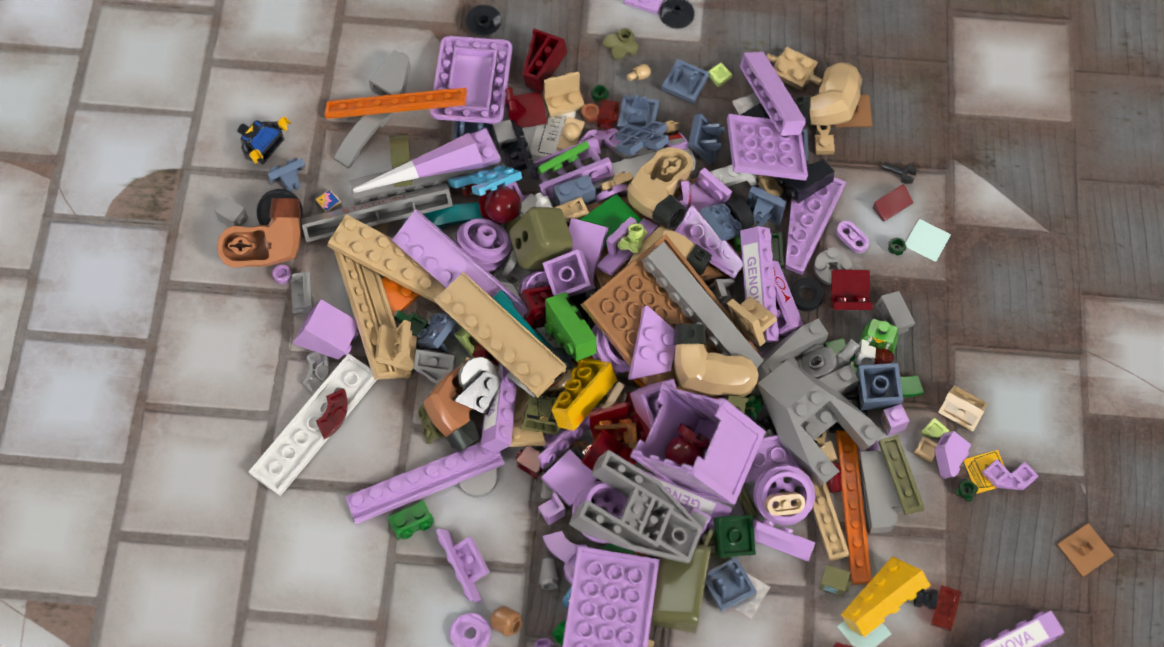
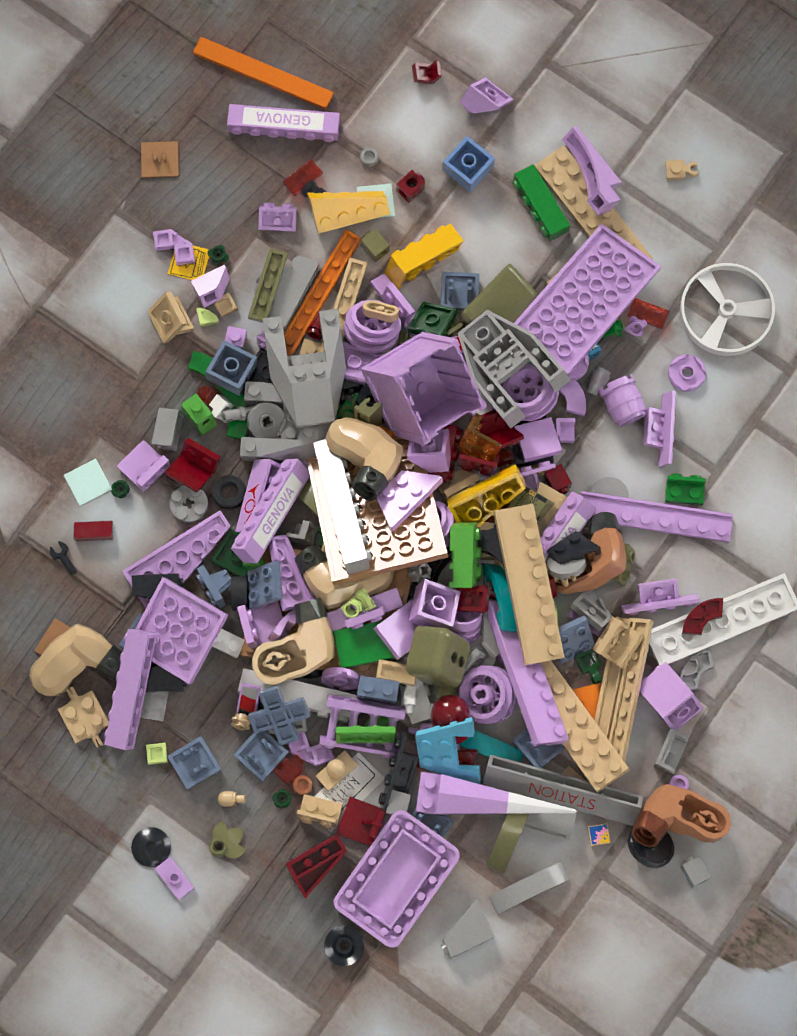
camera: 150 degrees left, 10 degrees up
(262, 138) = (629, 935): torso -> none
(287, 174) = (625, 879): sand blue plate -> none
(380, 411) = (659, 595): none -> lavender bracket
(396, 103) = (484, 892): orange tile -> none
(506, 621) = (654, 362): medium nougat head -> none
(513, 563) = (623, 401): none -> lavender piece
(620, 178) = (328, 682): tan plate -> none
(686, 447) = (431, 395): dark red tile -> none
(705, 138) = (219, 685): sand blue plate -> none
(752, 318) = (299, 480): tan bracket -> none
(782, 598) = (422, 254): none -> yellow wedge
(823, 141) = (111, 625): tan plate -> none
(853, 237) = (152, 520): lavender plate -> none
(891, 273) = (143, 465): none -> lavender bracket
(941, 555) = (277, 218): none -> lavender bracket

